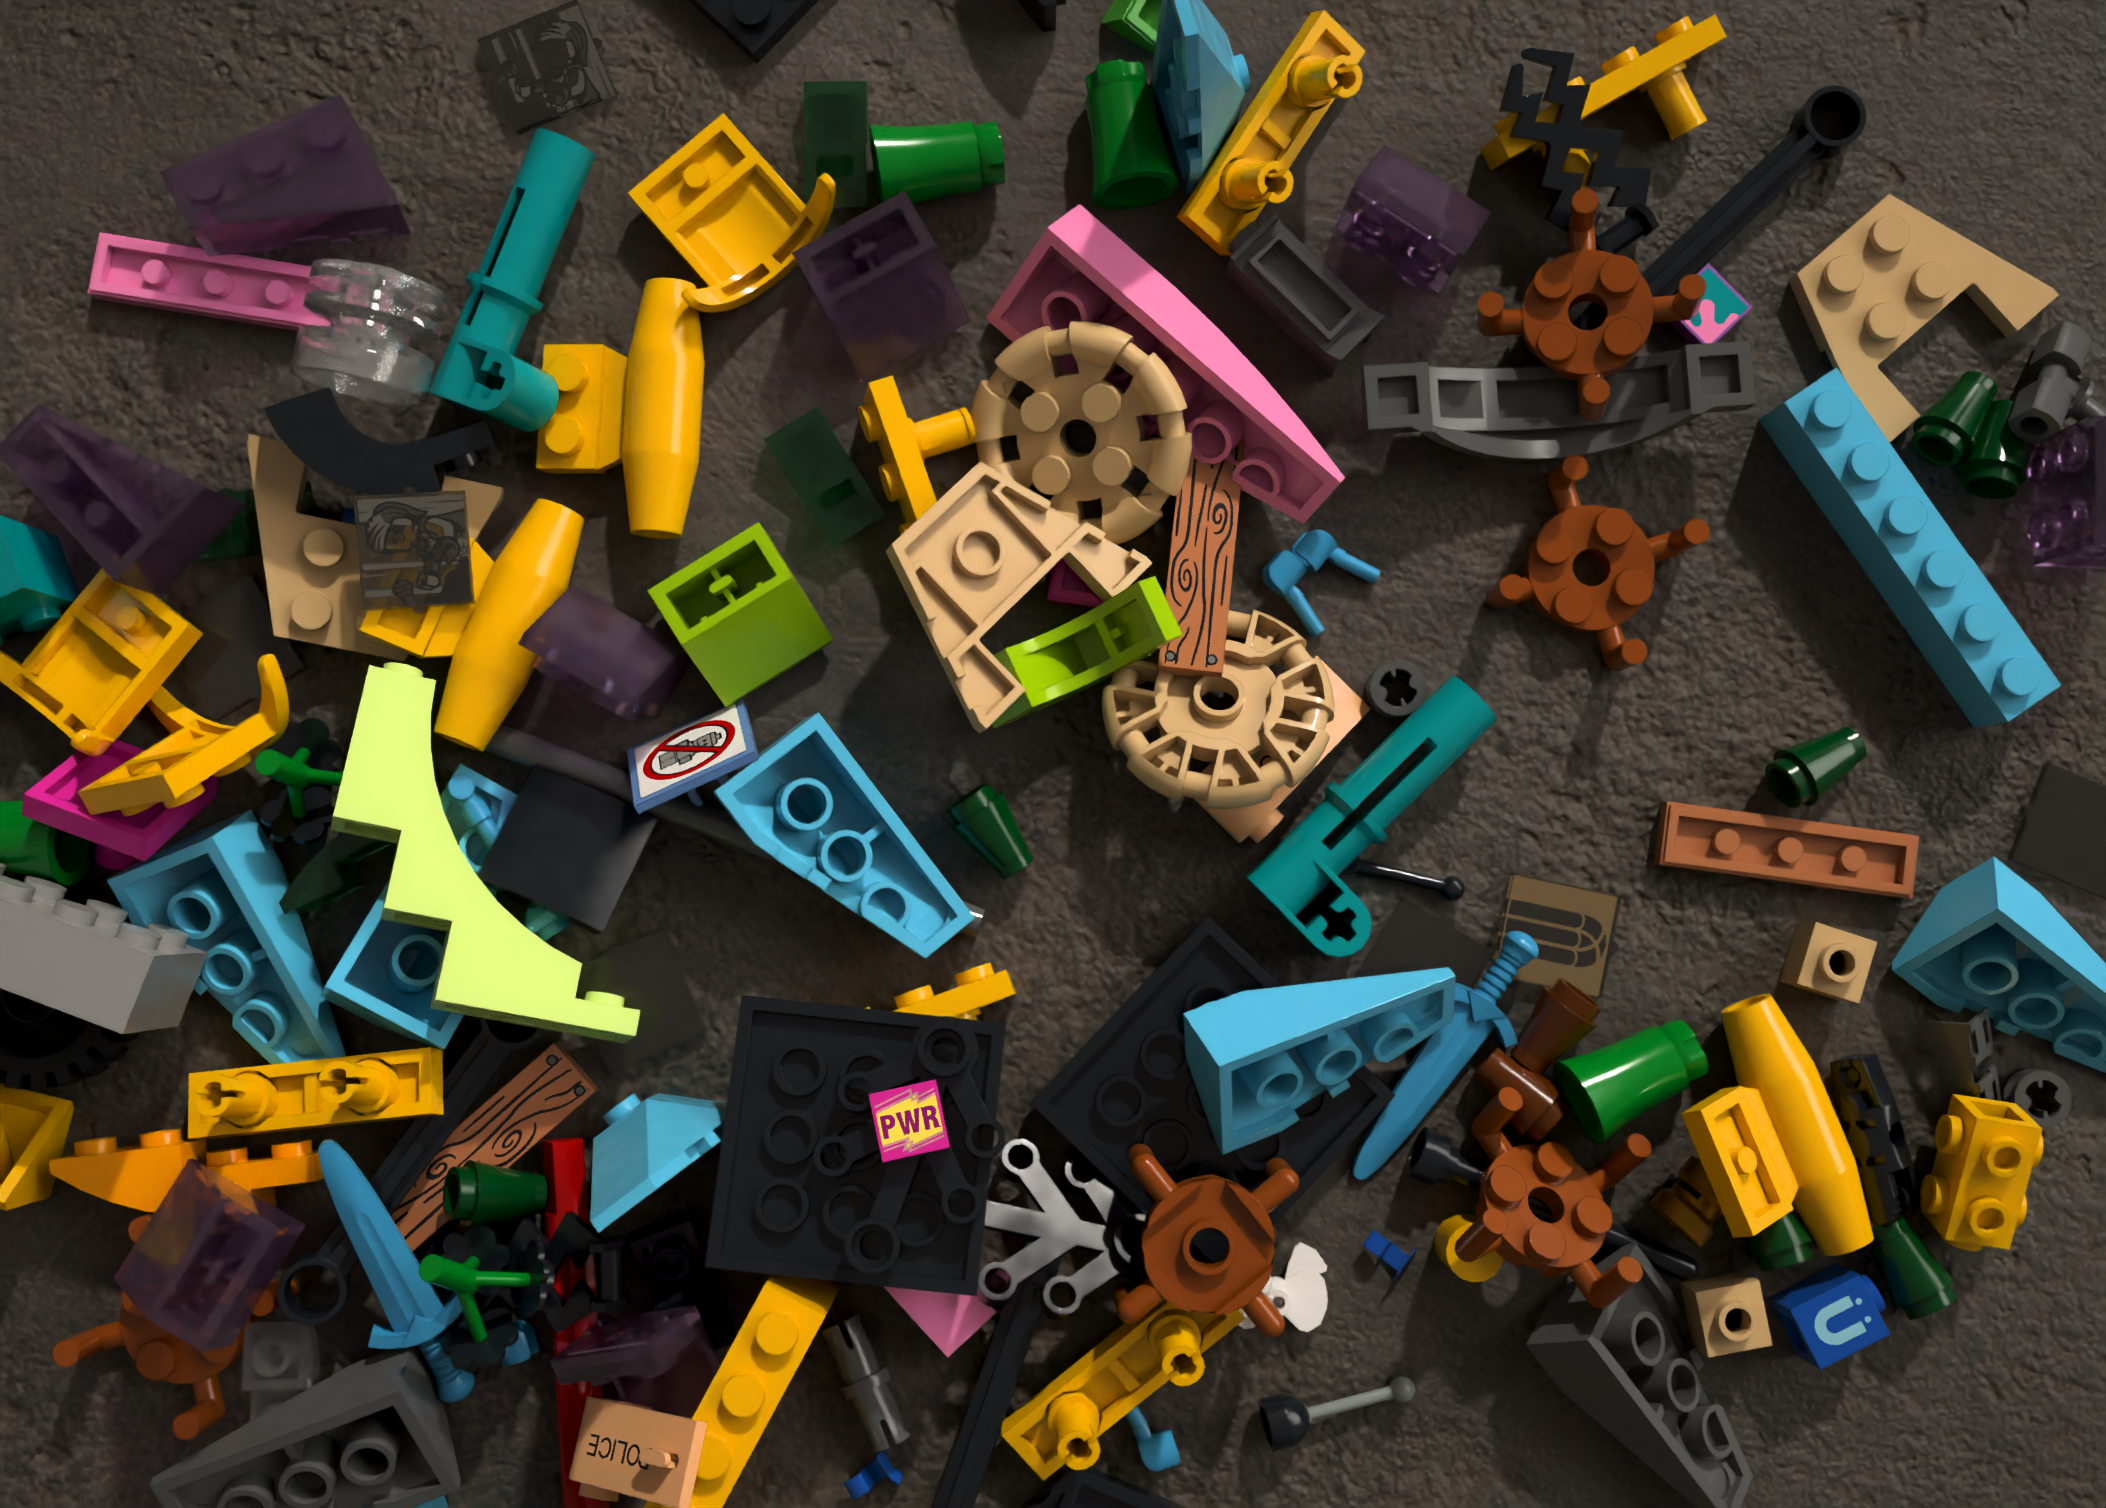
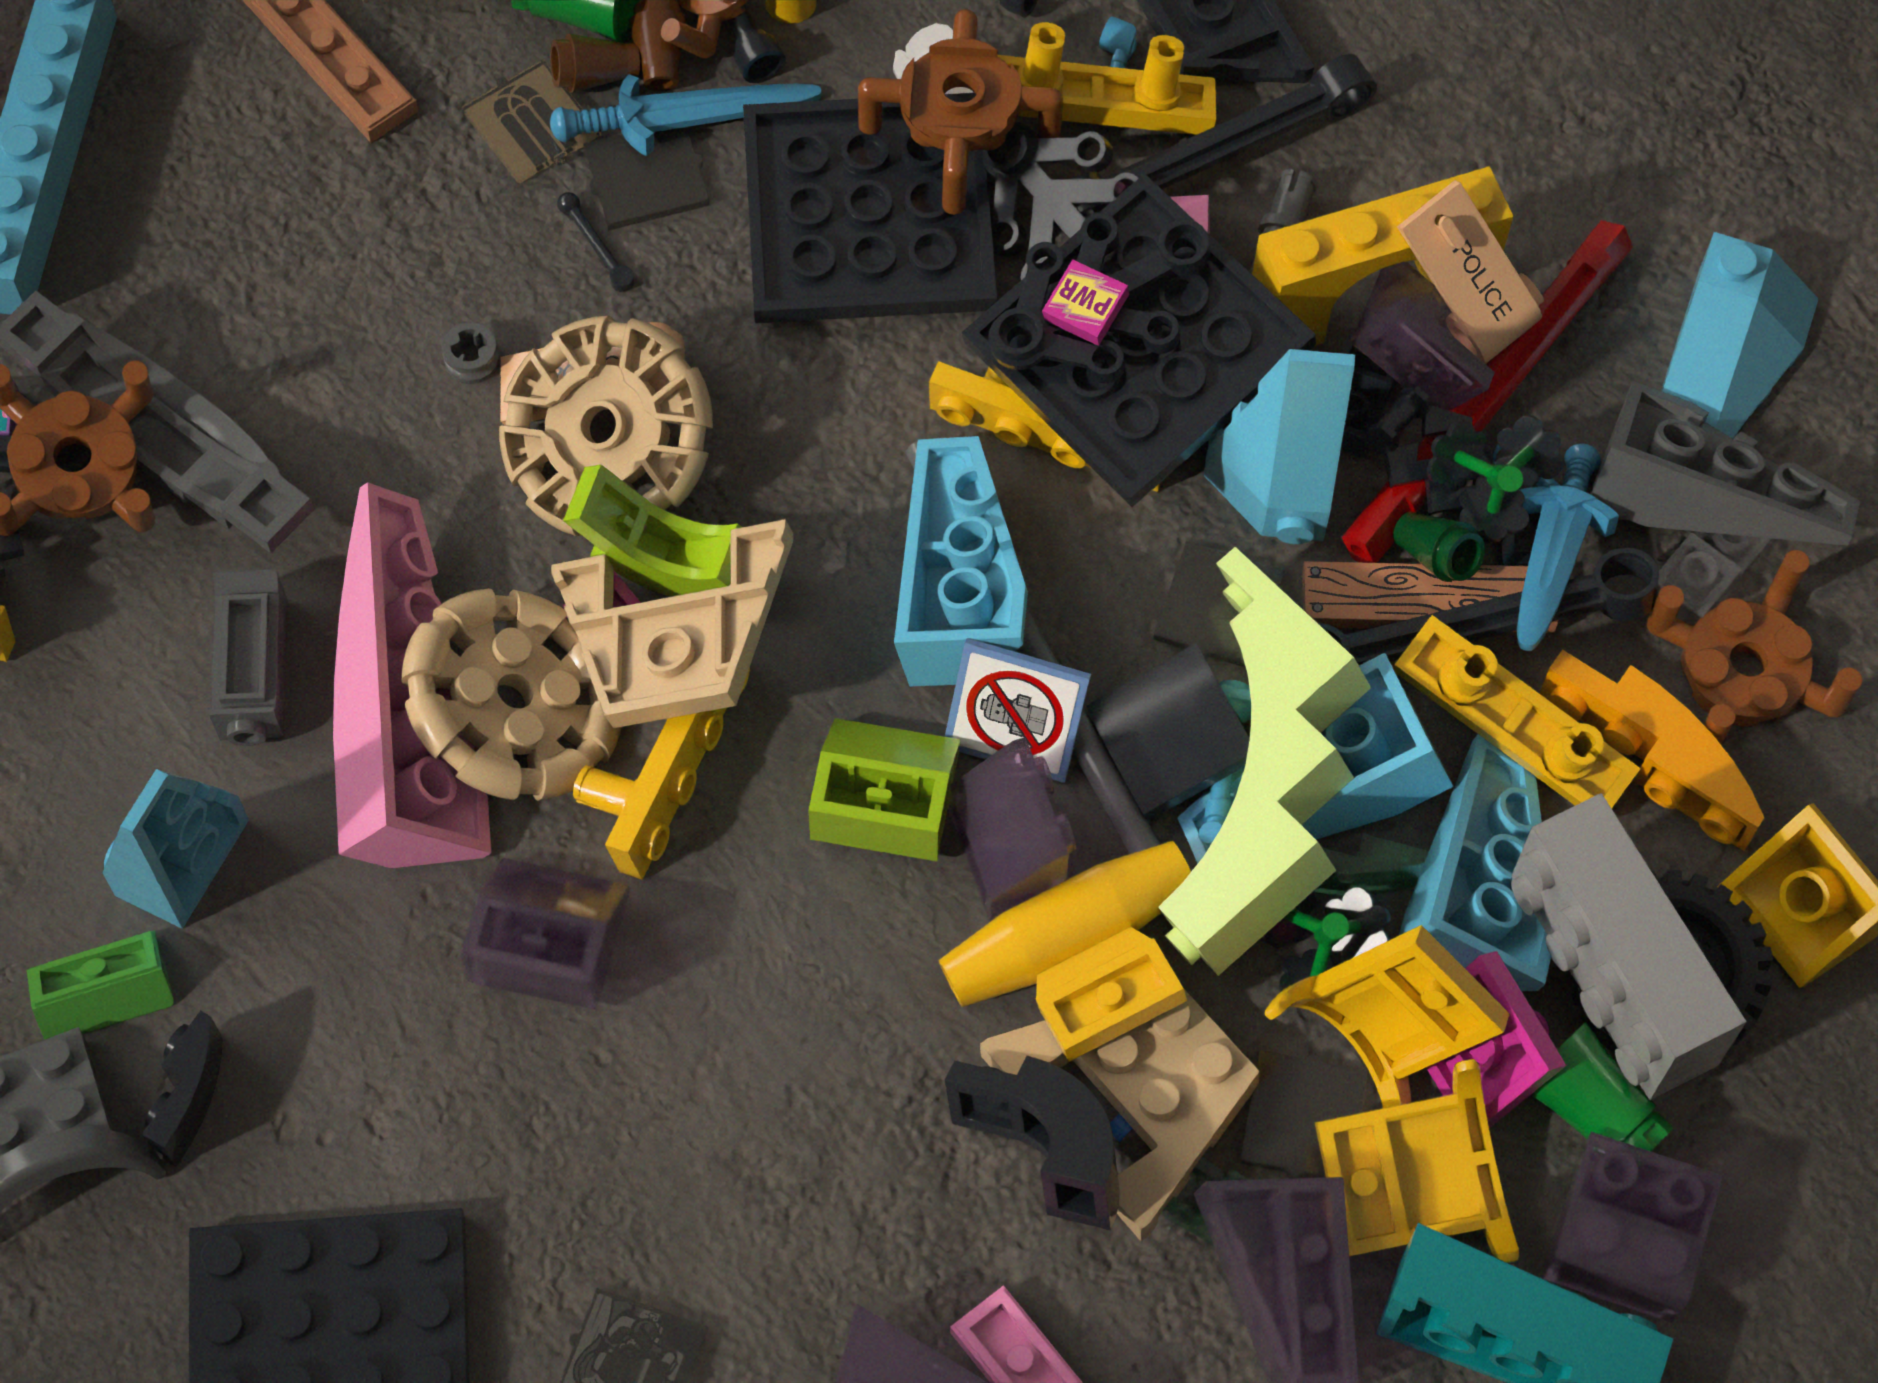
camera: 135 degrees left, 20 degrees down
(206, 1257) = (1680, 641): slope -> none
(371, 322) = (985, 1219): clear wheel -> none
(414, 550) = (1088, 1015): clear smoke piece -> none
(507, 291) = (838, 1180): teal piece -> none
(634, 410) = (816, 1004): yellow plate -> none
(730, 216) = (605, 1093): yellow piece -> none
(824, 477) = (726, 843): clear green slope -> none
(837, 140) = (471, 1084): clear green slope -> none
(871, 1474) = (1330, 183): blue piece -> none
(936, 159) = (414, 991): green plant -> none
(990, 829) = (848, 497): dark green cone -> none
(1126, 139) = (251, 880): green plant -> none
(1202, 567) = (518, 530): nougat tile -> none
(1272, 132) = (99, 801): yellow plate -> none
(1281, 576) = (467, 490): dark azure hand -> none
(1284, 1045) = (797, 188): medium azure wedge -> none
(1304, 865) = (583, 287): teal piece -> none
(1317, 546) = (424, 486): dark azure hand -> none
(1387, 1251) = (845, 27): blue piece -> none
(1410, 219) = (116, 630): clear purple slope -> none
(1620, 547) = (247, 285): dark orange plate -> none
(1813, 766) = (251, 71): dark green cone -> none

